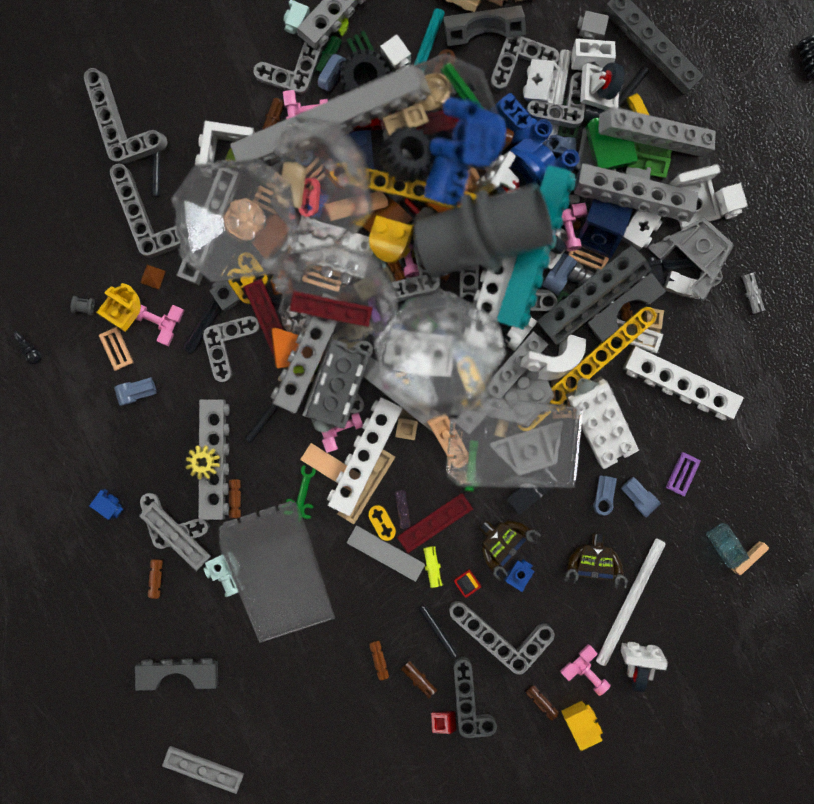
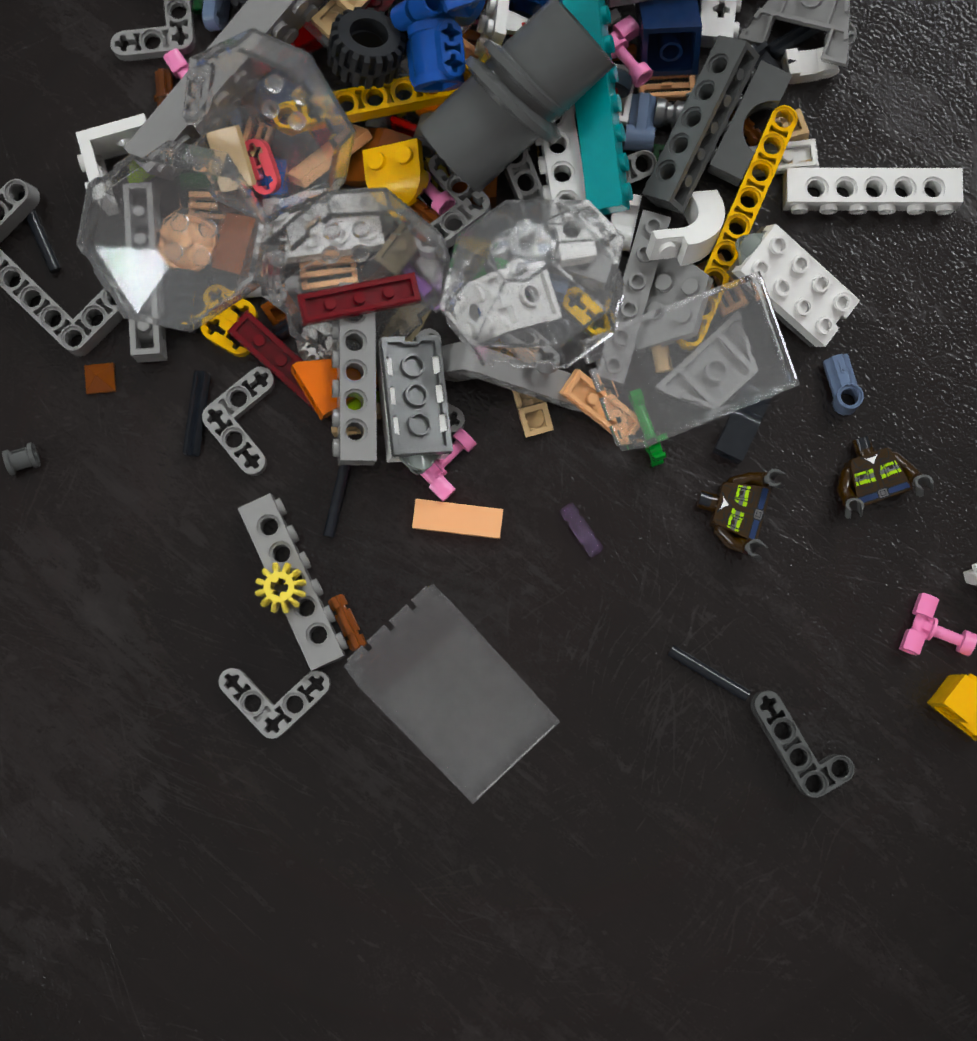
camera: 20 degrees left, 5 degrees down
(106, 505) = (175, 713): blue brick -> none
(121, 306) = (74, 434): yellow slope -> none
(123, 363) = (111, 512): light nougat tile -> none
(130, 392) = (138, 545): sand blue piece -> none
(155, 579) = (288, 783): dark orange axle -> none
(166, 323) = (145, 430): bright pink bar -> none
(175, 536) = (289, 710): light grey tile -> none
(201, 673) = (414, 883): dark grey arch -> none
(203, 769) = (477, 1019): light grey tile -> none
(210, 568) = (380, 722): light aqua brick -> none
(228, 584) = (394, 741): light aqua bush -> none
(229, 302) = (217, 364): dark grey brick -> none
(303, 491) = (435, 567): green bar -> none
(347, 504) = (502, 403): white brick -> none
(378, 525) = (566, 555): yellow beam -> none
(379, 470) = (517, 521): tan tile -> none
(379, 660) = (648, 750): dark orange axle -> none
(386, 553) = (587, 600): light grey tile -> none
(419, 679) = (715, 750): reddish brown pin -> none
(432, 566) = (659, 588): neon yellow pin -> none
(434, 522) = (633, 528): dark red tile -> none
(443, 722) = (776, 794): red slope -> none
(467, 583) = (717, 588): slope -> none
(498, 641) = (796, 645): light grey beam -> none
(512, 578) = (775, 551): blue brick -> none
(543, 704) = (897, 702): reddish brown axle -> none
(630, 602) = (947, 511): white axle -> none
(643, 500) = (898, 366): sand blue piece -> none
(675, 472) = (920, 309): medium lavender tile -> none
(753, 293) = (905, 33): light grey pin -> none

